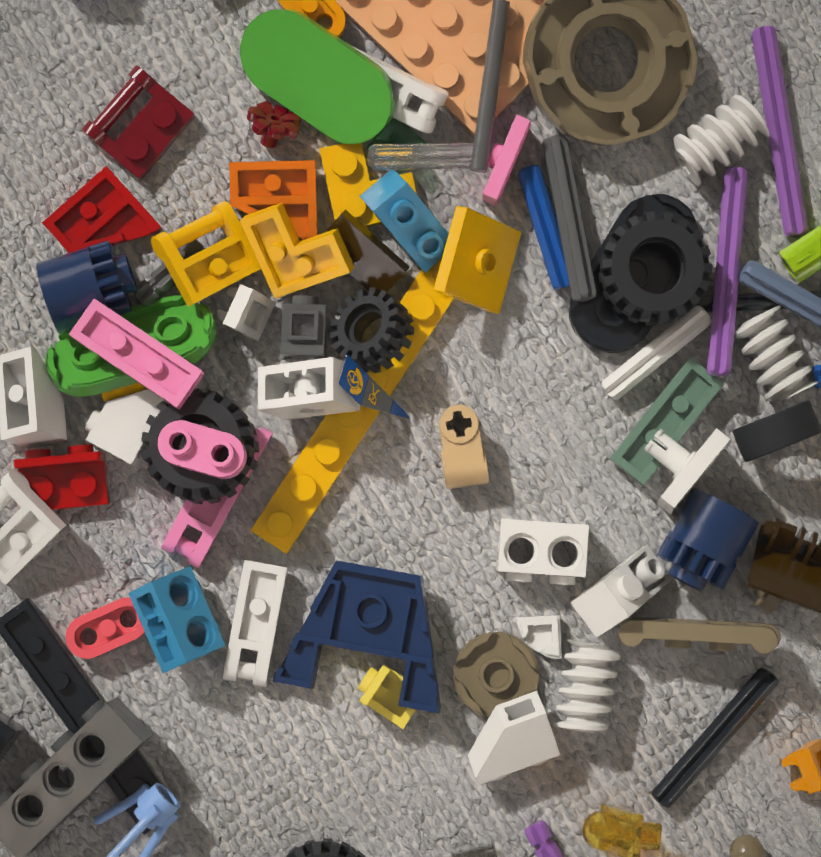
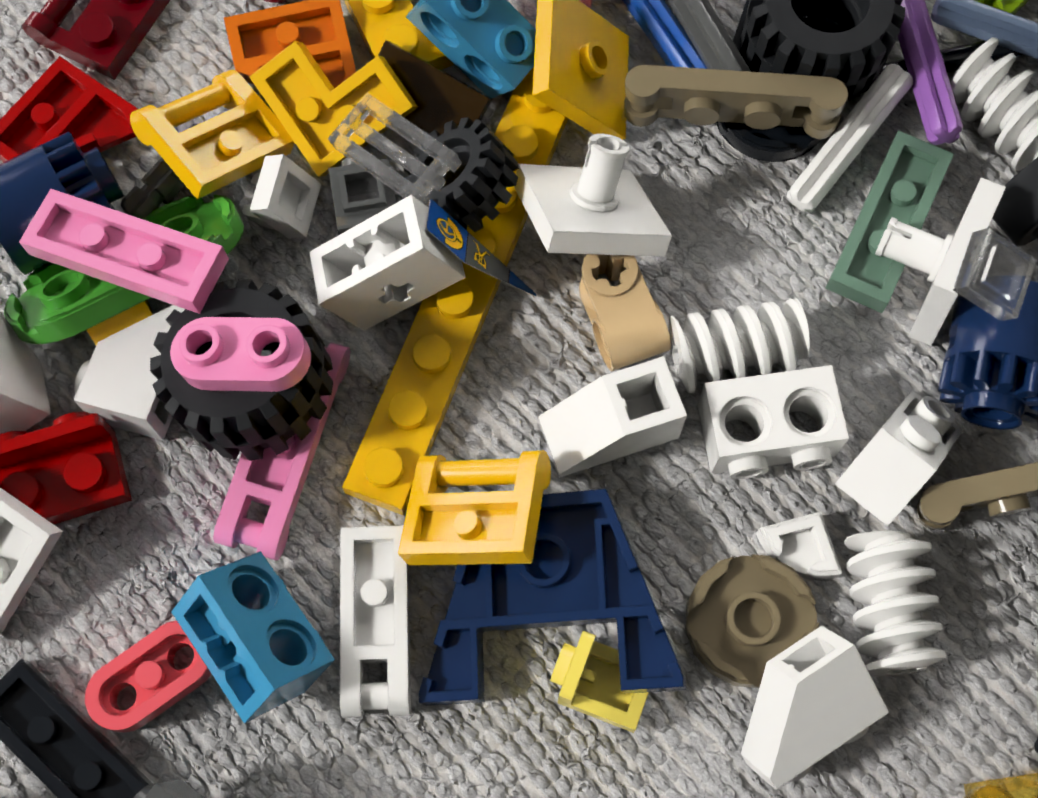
camera: 15 degrees left, 15 degrees down
(330, 581) = (474, 525): none -> yellow plate
(351, 336) = (428, 176): none -> clear tile
(435, 526) = (614, 417): none -> white slope
(456, 377) = (593, 205): none -> white tile
(534, 492) = (739, 342): none -> white piece
(595, 319) = (734, 97): none -> dark tan plate
(702, 499) = (995, 274): none -> clear tile

